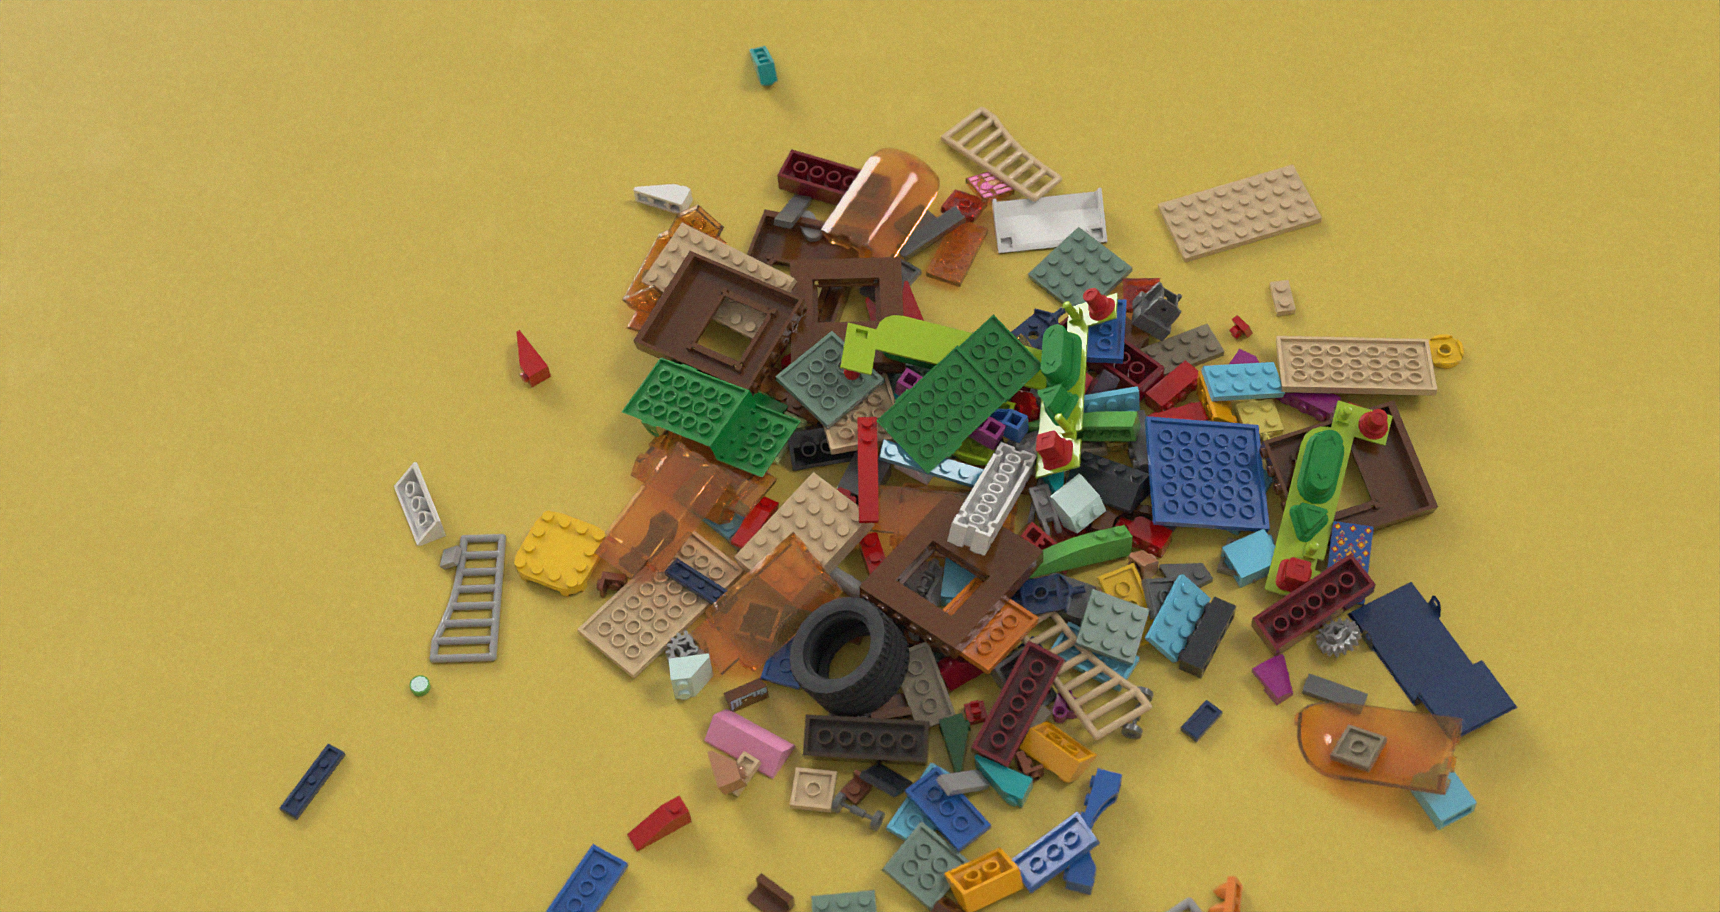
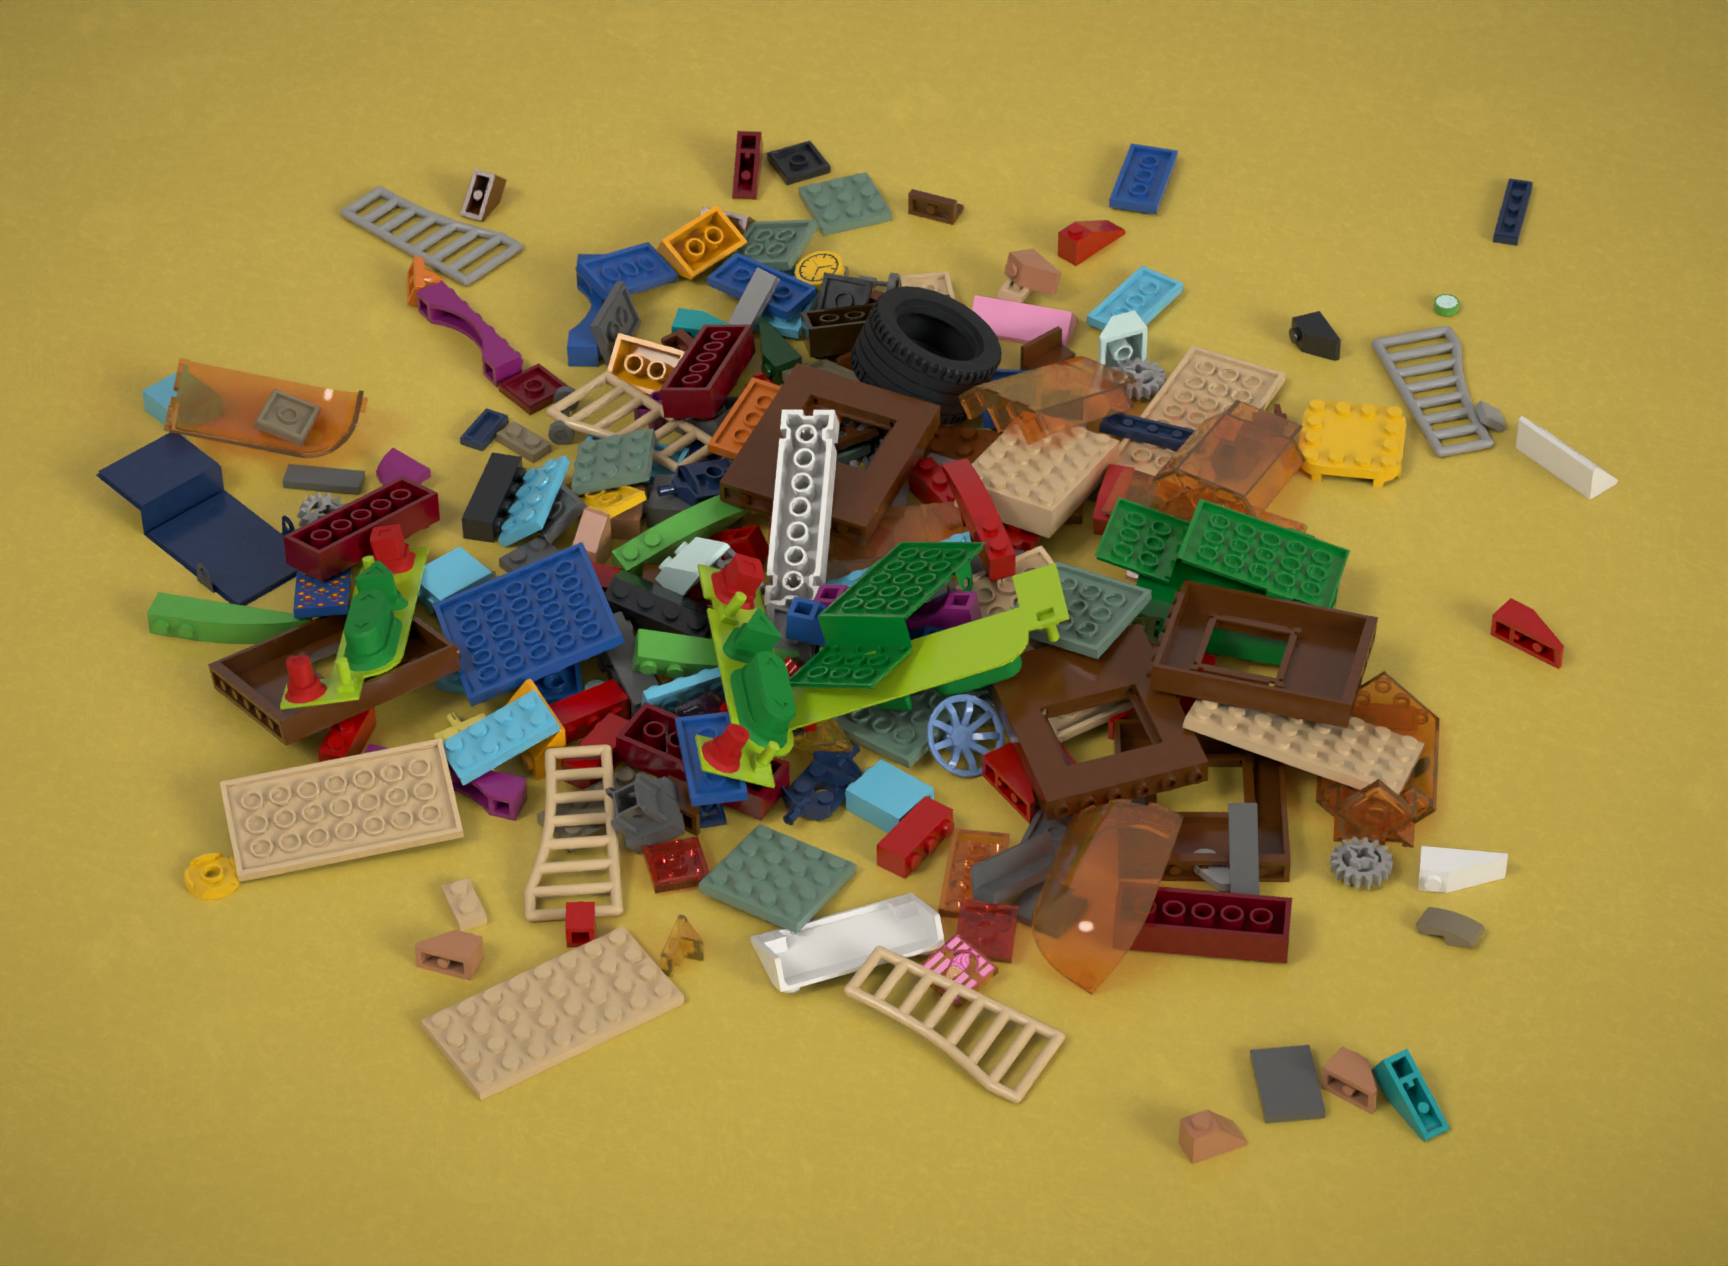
camera: 160 degrees right, 15 degrees down
(536, 667) = (1315, 336): none -> black slope
(655, 738) = (1143, 291): none -> medium azure plate
(688, 163) = (1455, 928): none -> dark tan slope
(720, 210) = (1361, 862): none -> light grey gear
(791, 80) = (1351, 1079): none -> nougat slope
(826, 89) = (1287, 1084): none -> dark grey tile
(882, 61) = (1208, 1135): none -> nougat slope
(895, 816) = (812, 267): none -> yellow tile
(985, 283) = (915, 837): none -> red brick
(989, 303) = (885, 795): none -> medium azure brick
(1077, 791) = (614, 317): none -> dark grey tile
(1151, 236) = (681, 944): none -> clear yellow slope
(1154, 757) = (532, 388): none -> dark red tile
(1173, 699) = (523, 442): none -> dark tan plate
(1211, 260) = (580, 923): none -> red brick
(1214, 862) = (443, 307): none -> magenta arch
(1215, 331) = (551, 821): none -> tan bar
(1240, 328) = (517, 844): red tile -> none
(1296, 256) = (451, 954): none -> nougat slope
(1428, 558) = (216, 621): none -> bright green slope

